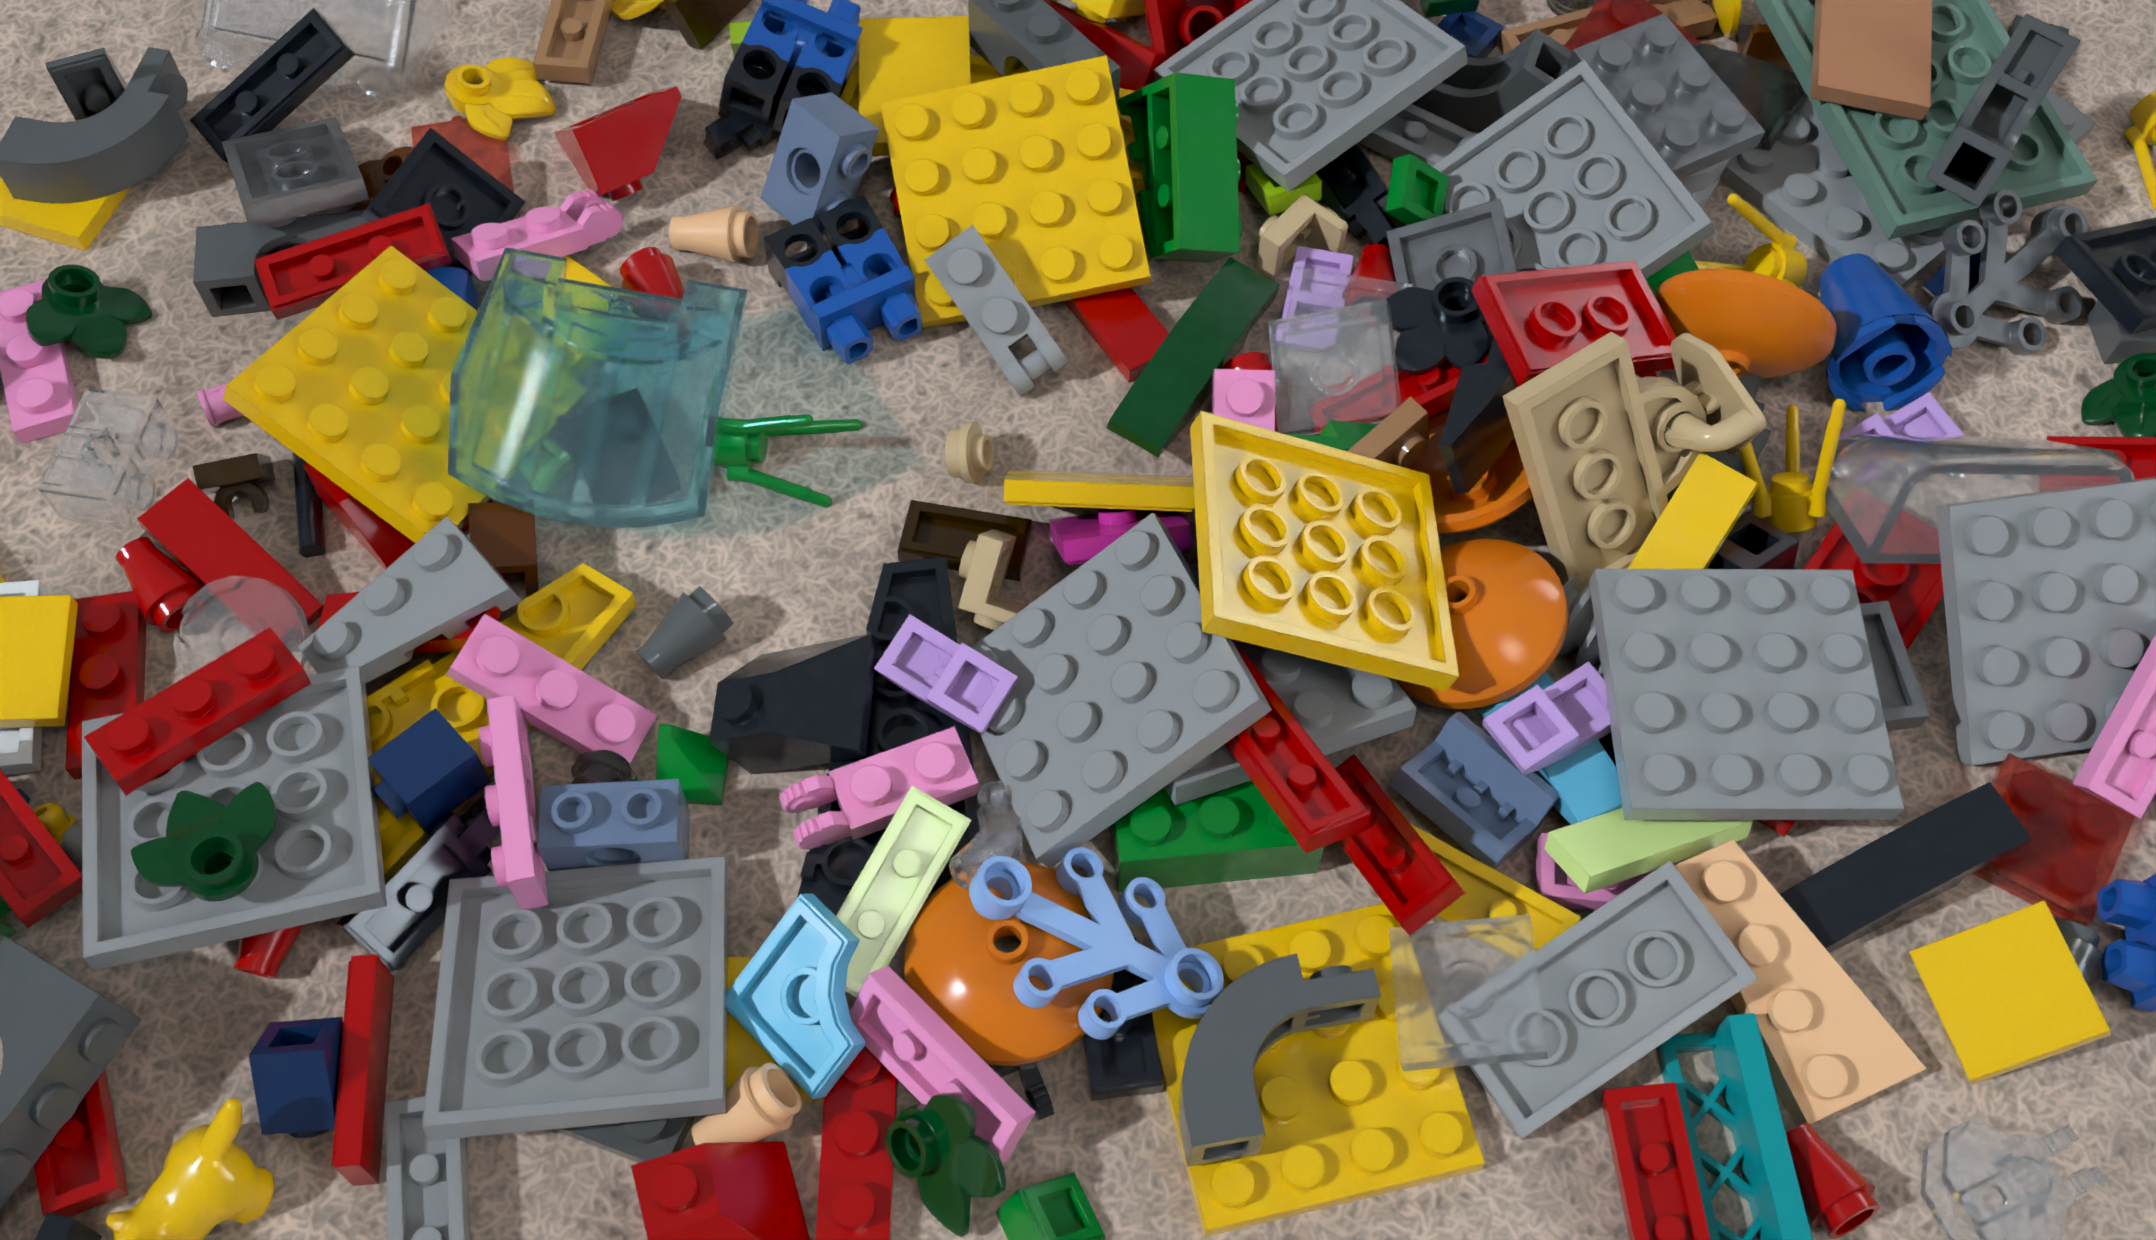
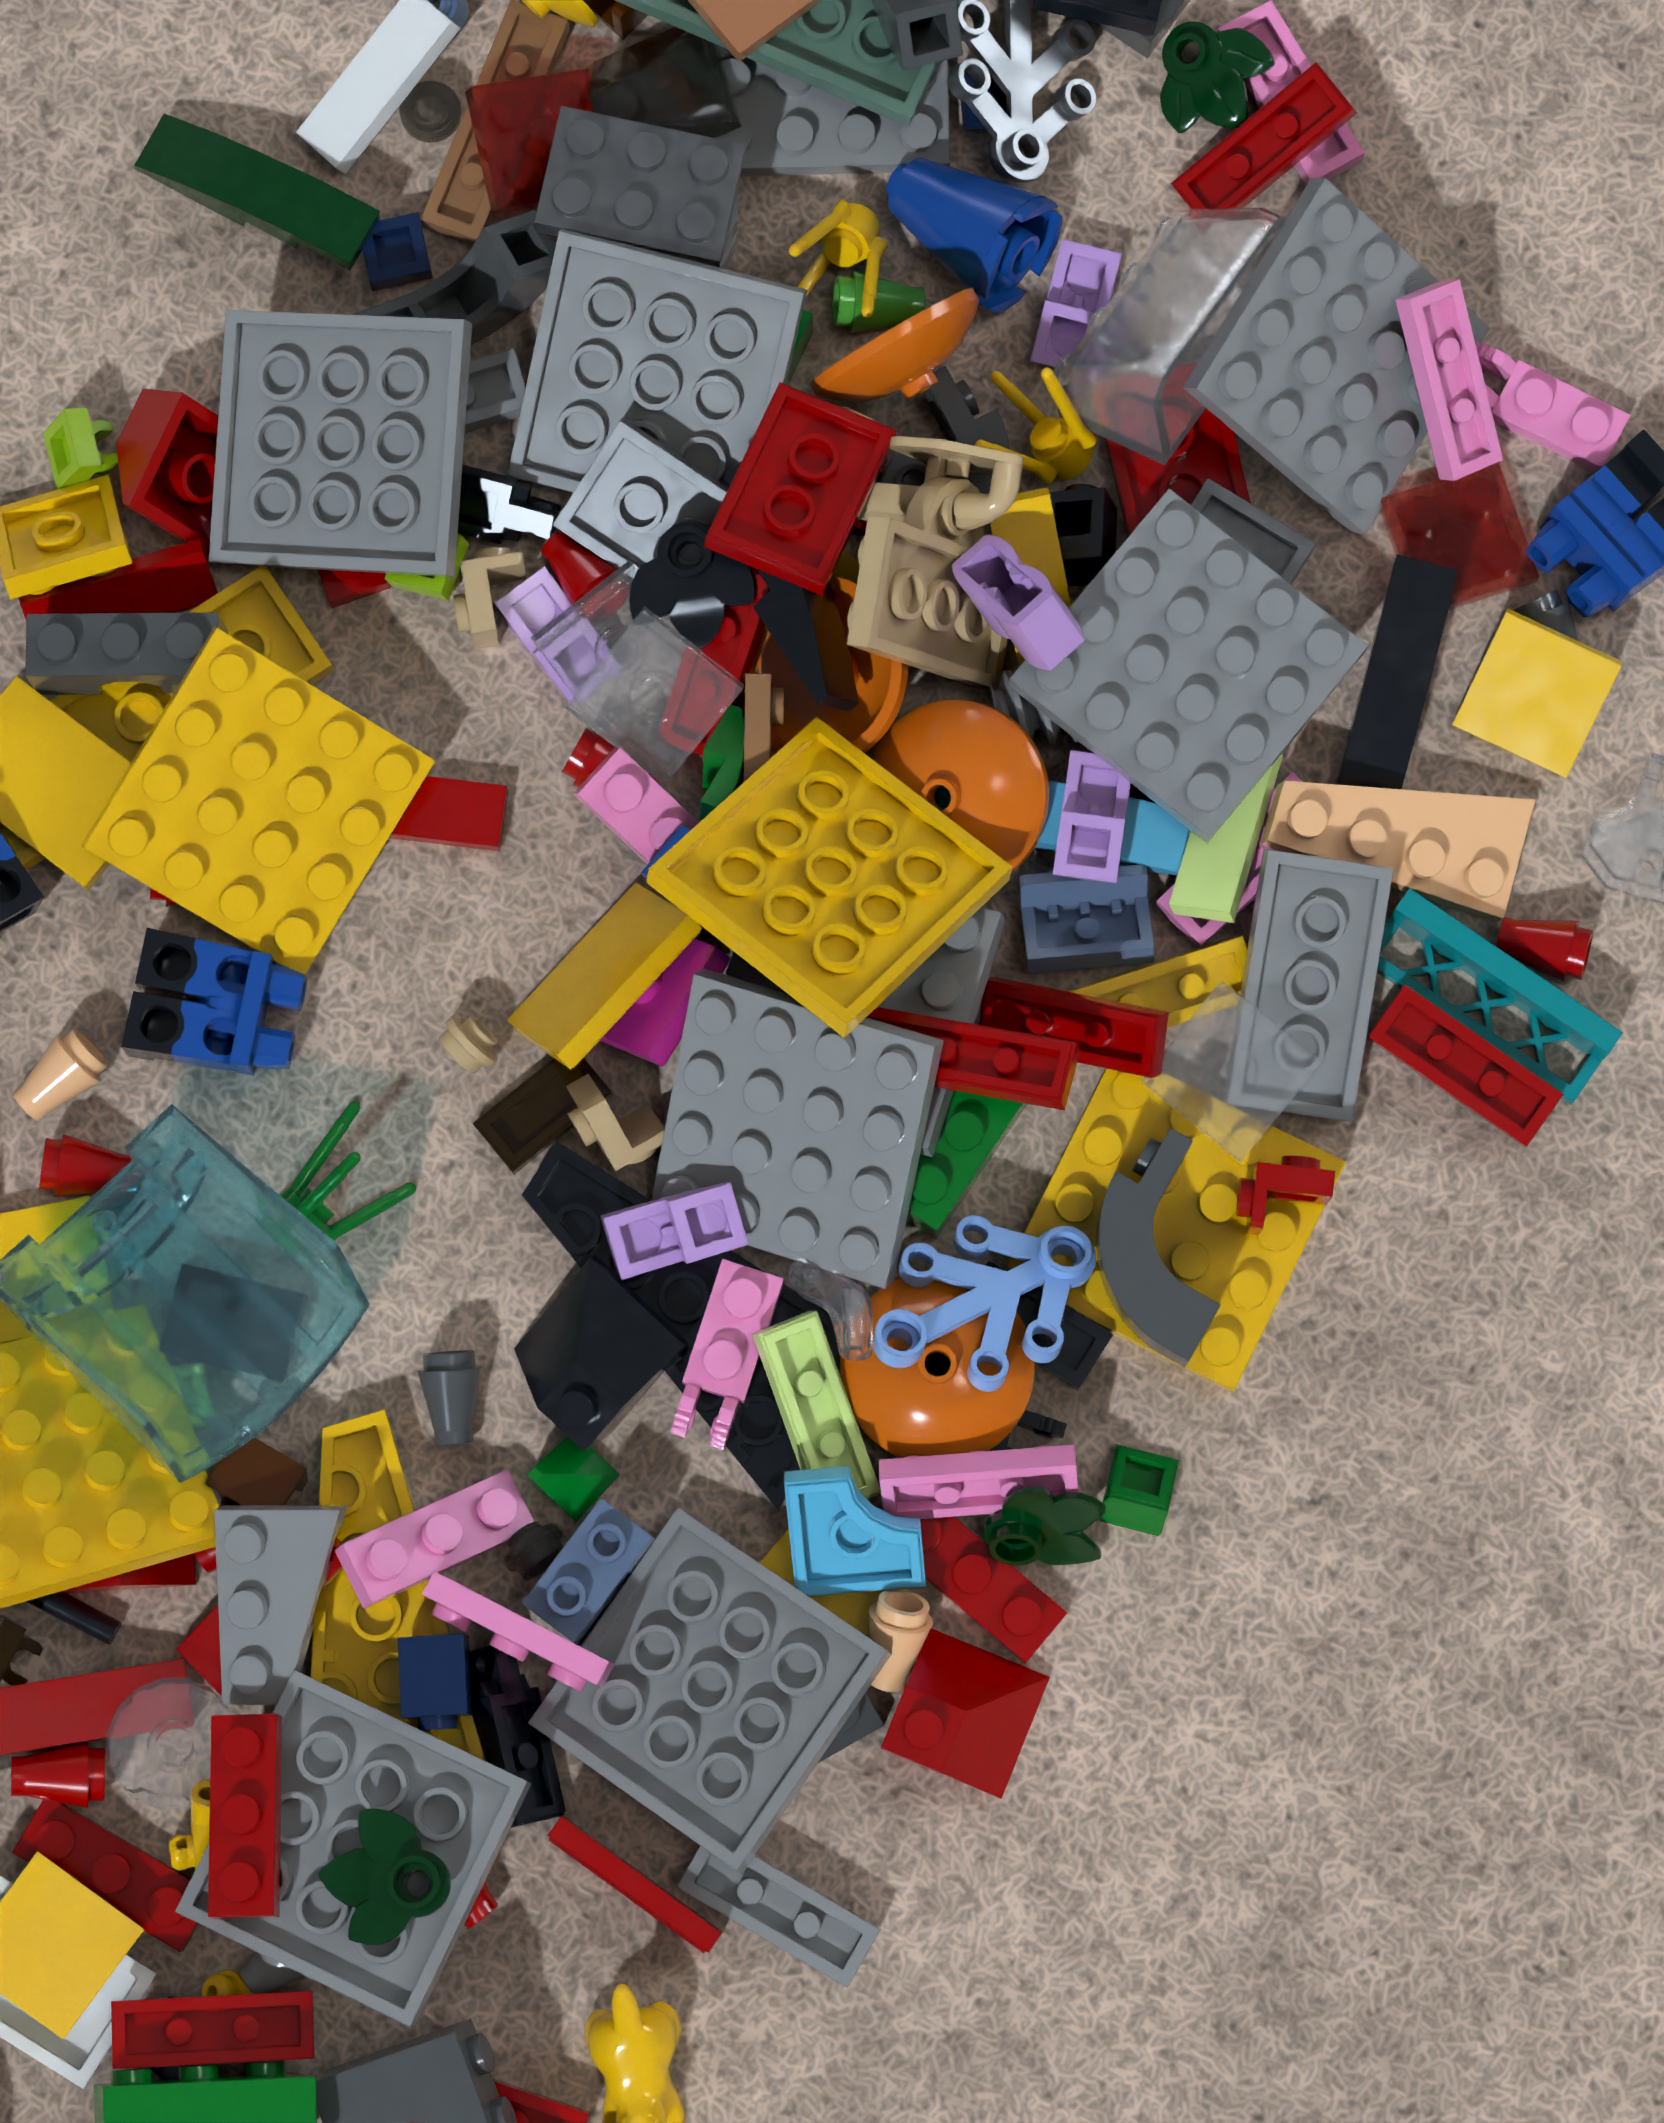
camera: 45 degrees left, 20 degrees up
(297, 1076) = (623, 1937): dark blue brick -> none
(818, 158) = (84, 939): sand blue brick -> none
(995, 308) = (356, 912): light grey plate -> none
(1182, 368) = (533, 785): dark green slope -> none
(1188, 165) = (354, 633): green wedge -> none
(1415, 190) = (542, 469): green plate -> none
(1425, 1116) = (1294, 1180): none -> red bracket
(1658, 518) = (1018, 602): none -> lavender brick

